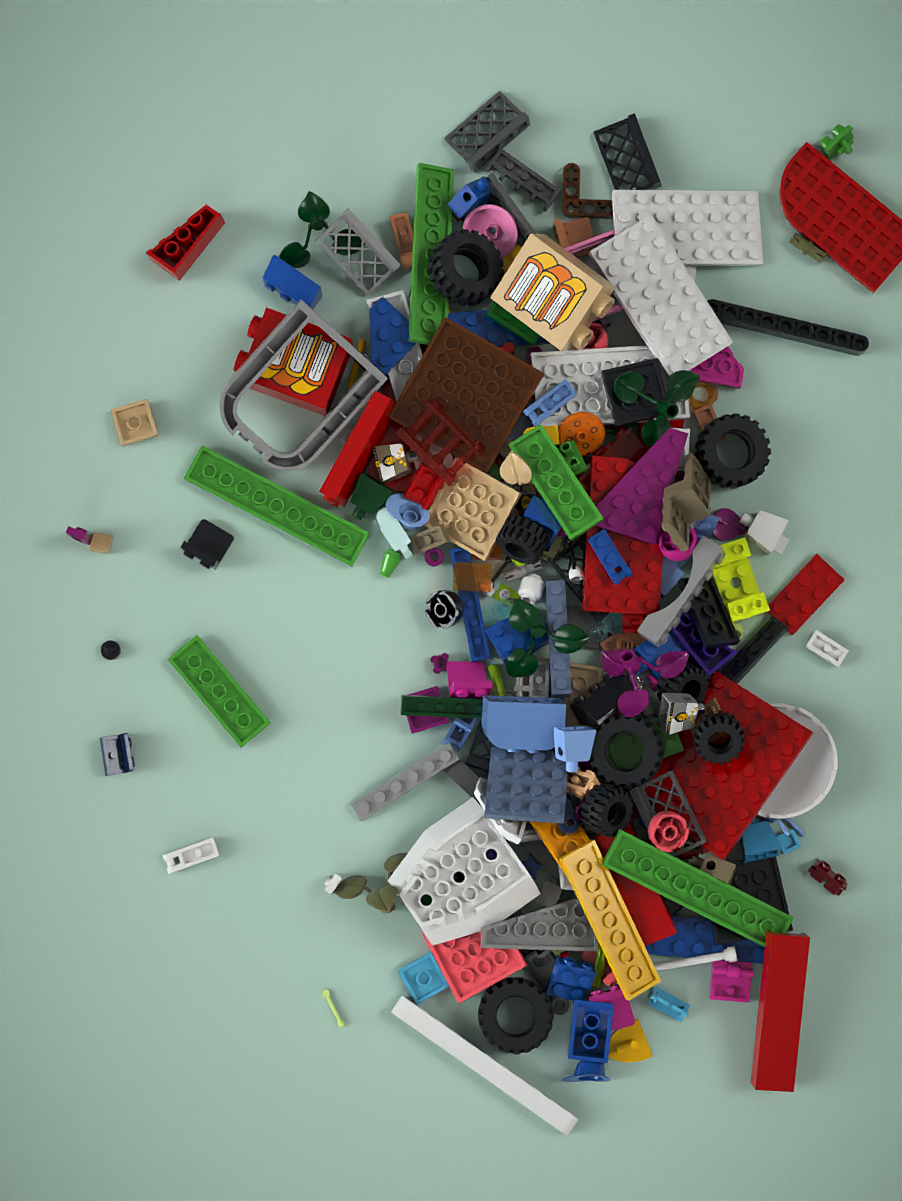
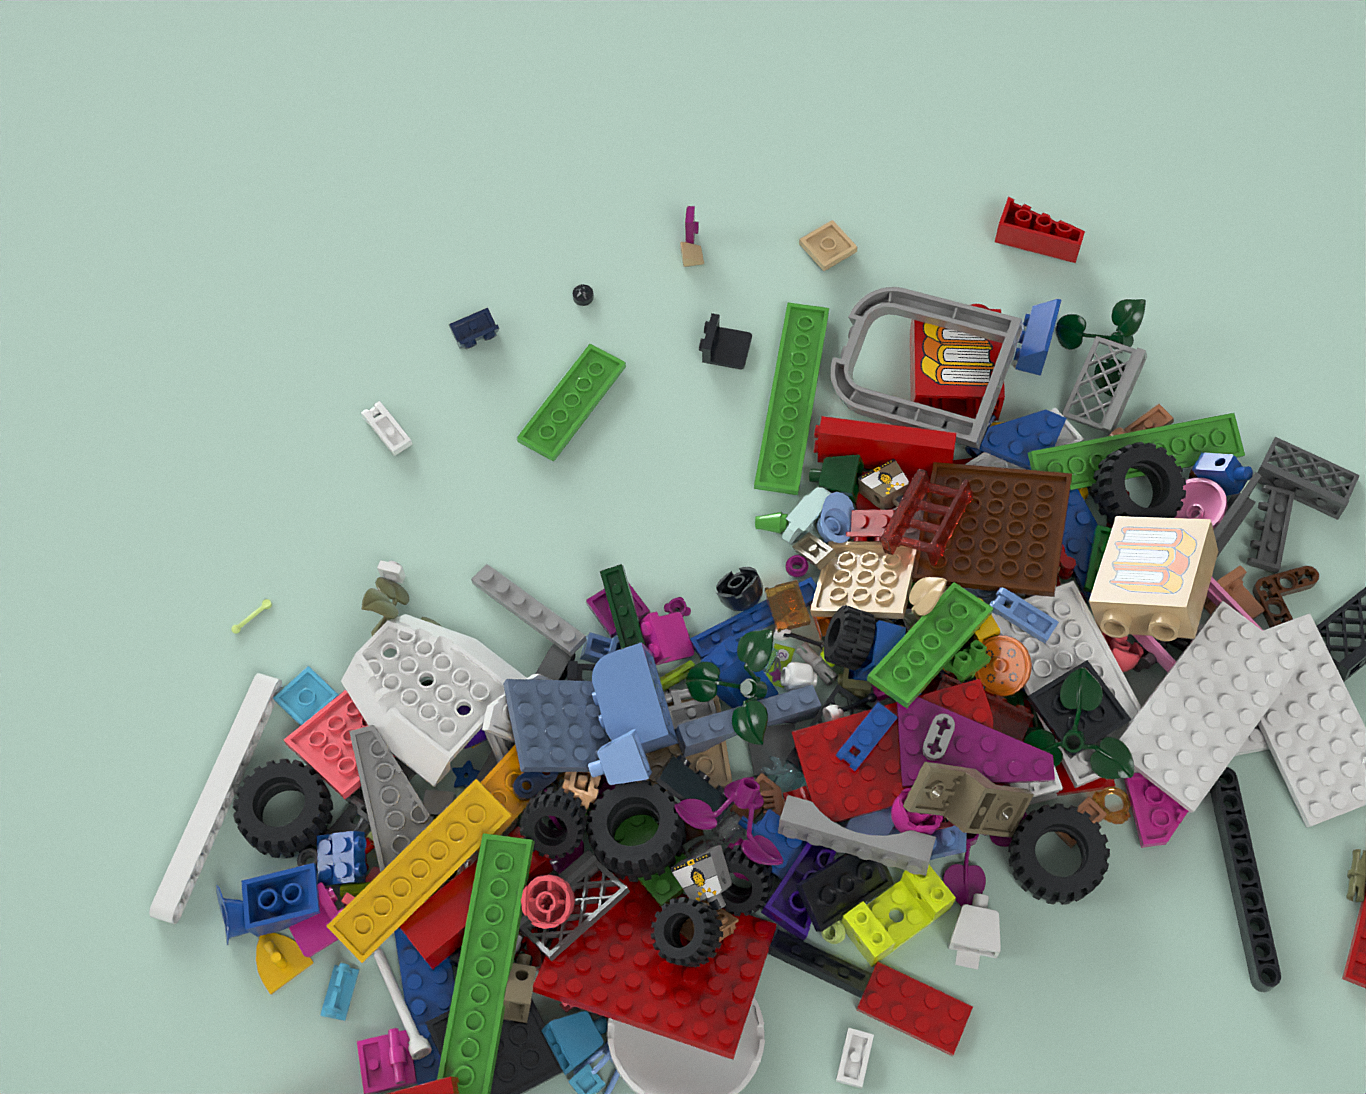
camera: 75 degrees right, 20 degrees down
(629, 508) = (933, 734): none -> light grey beam

